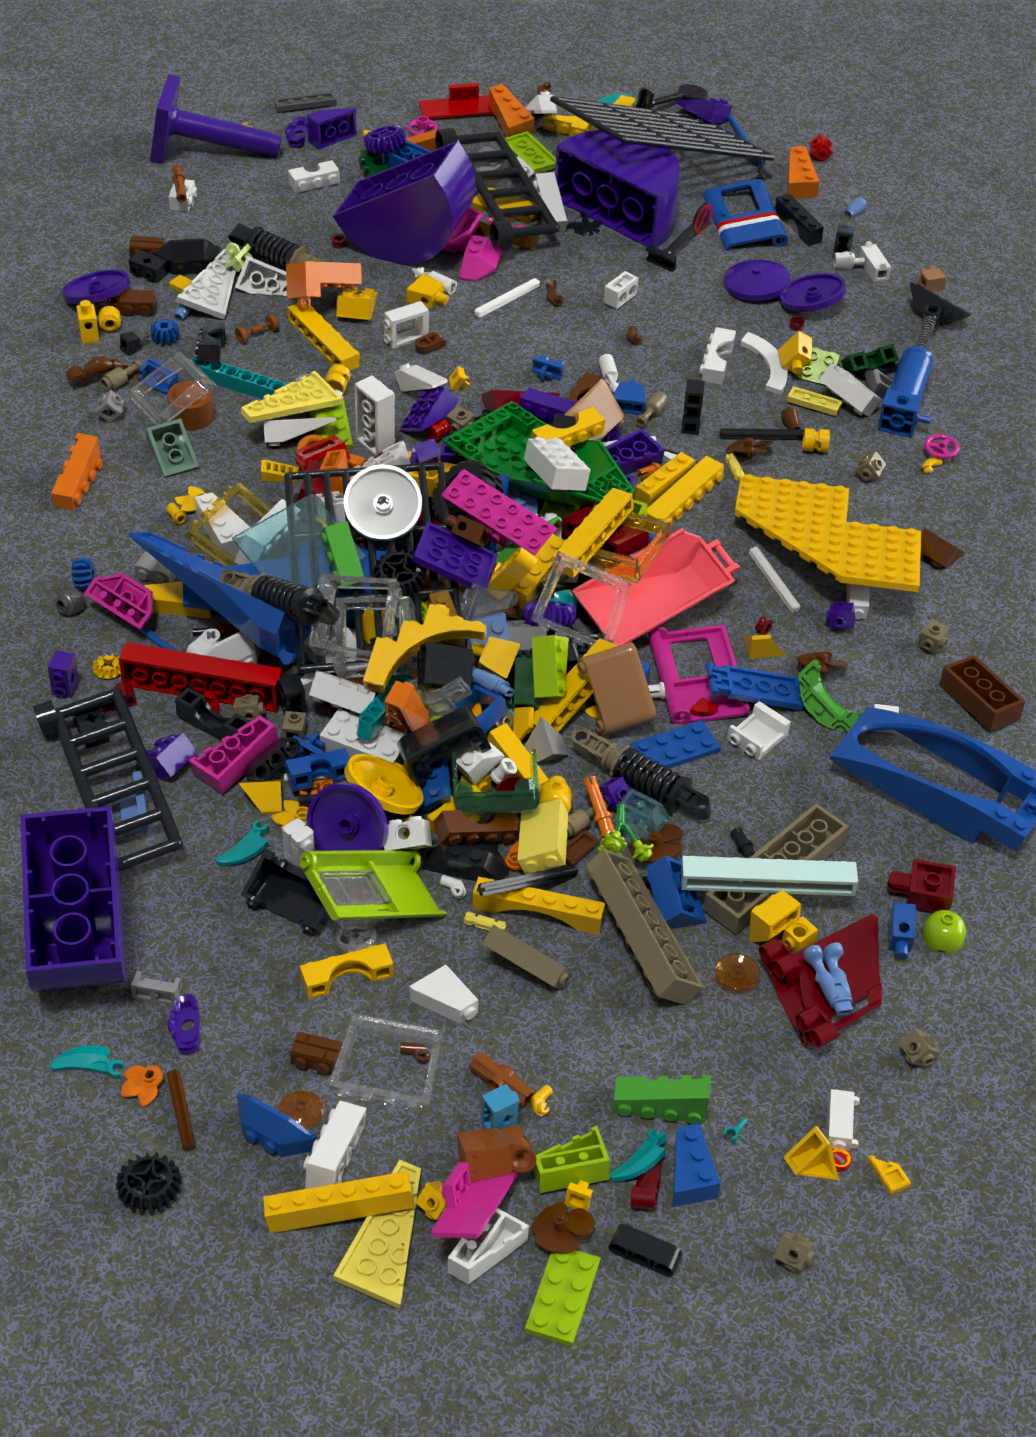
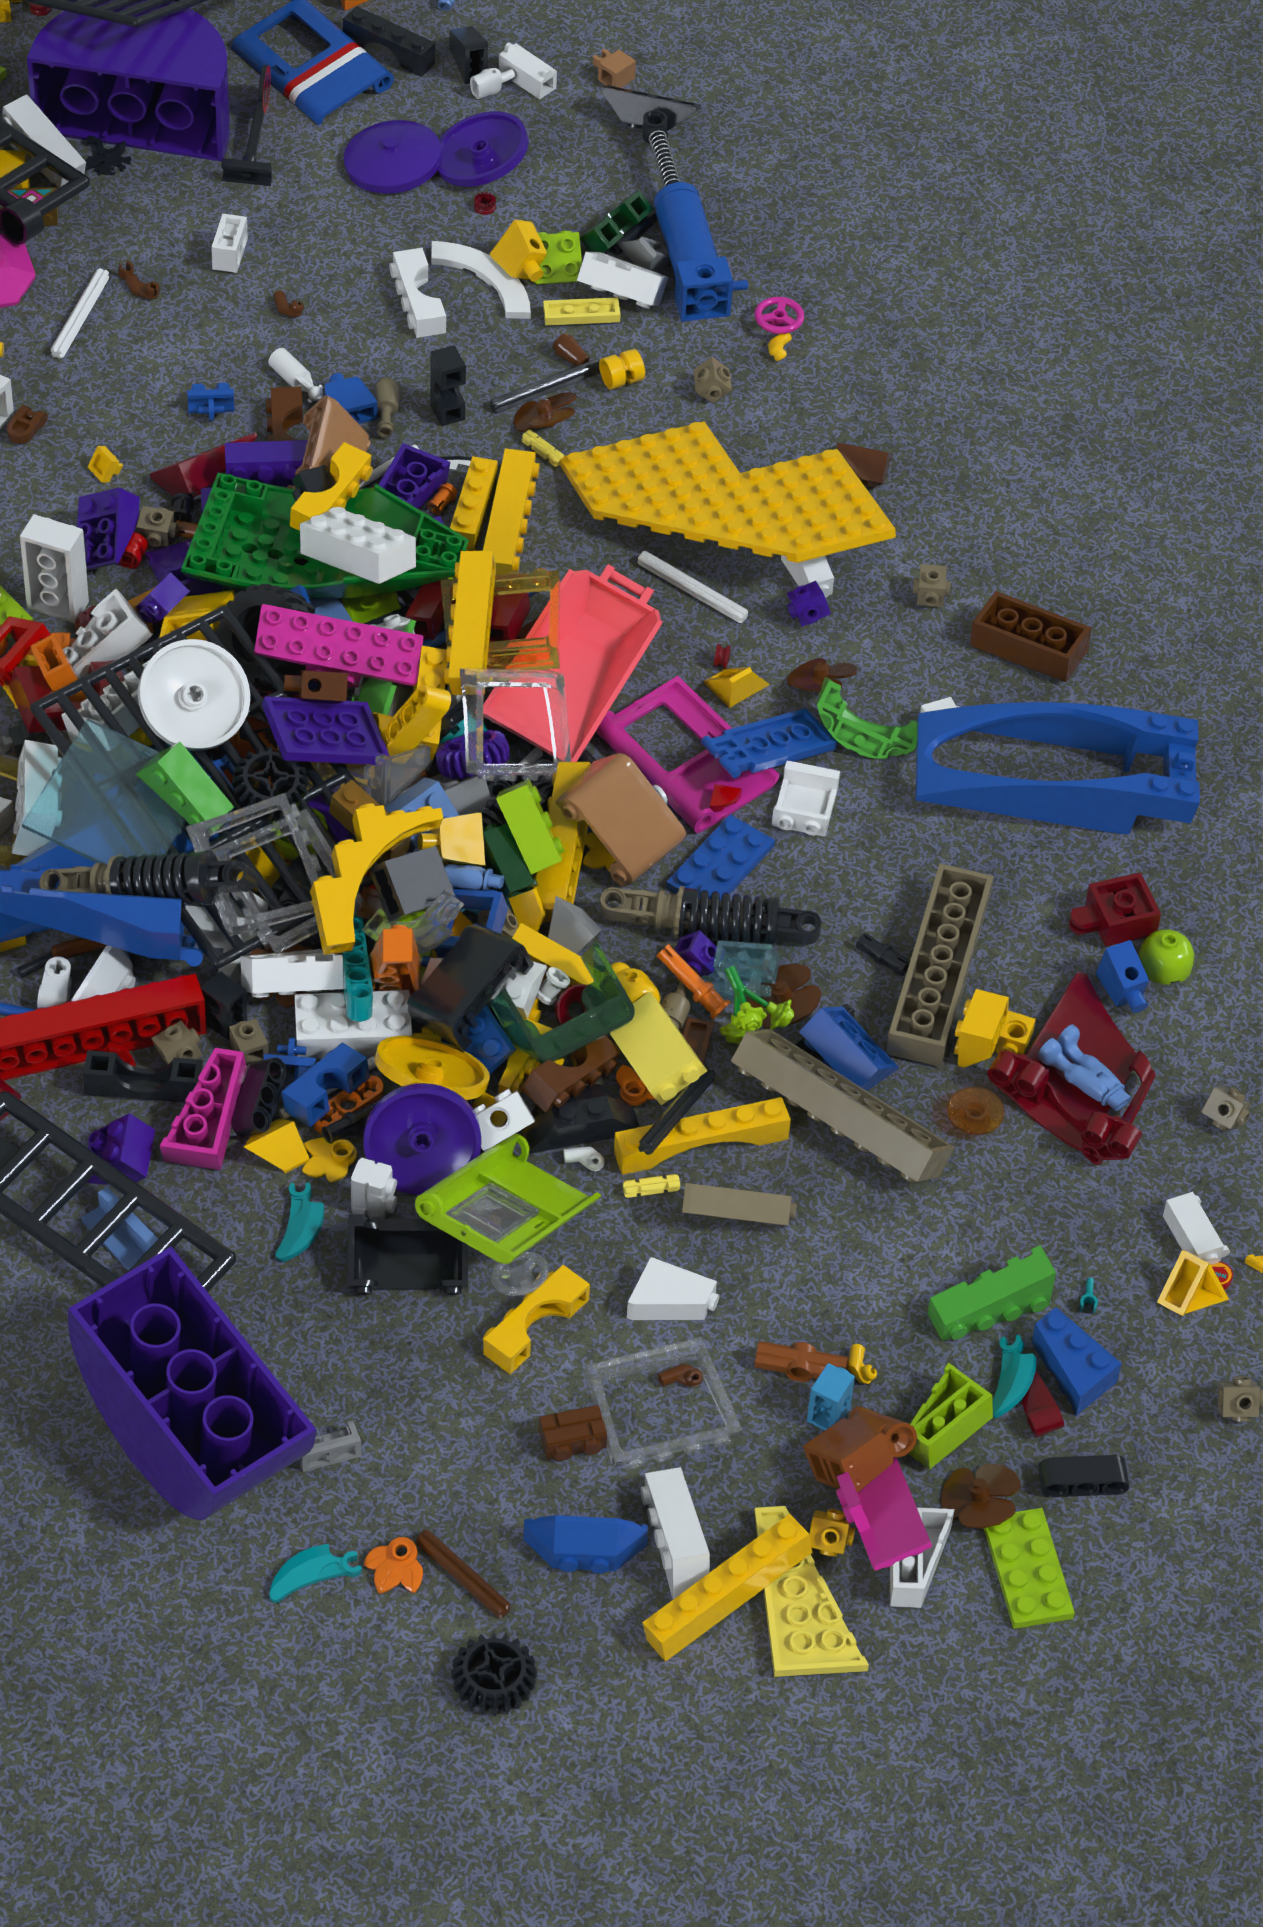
camera: 30 degrees left, 5 degrees up
(185, 1010) = (380, 1457): dark purple piece -> none
(307, 1115) = (614, 1505): clear orange dish -> none
(417, 378) = (58, 488): white wedge -> none
(578, 1195) = (975, 1451): yellow tile -> none
(769, 875) = (948, 979): light aqua brick -> none

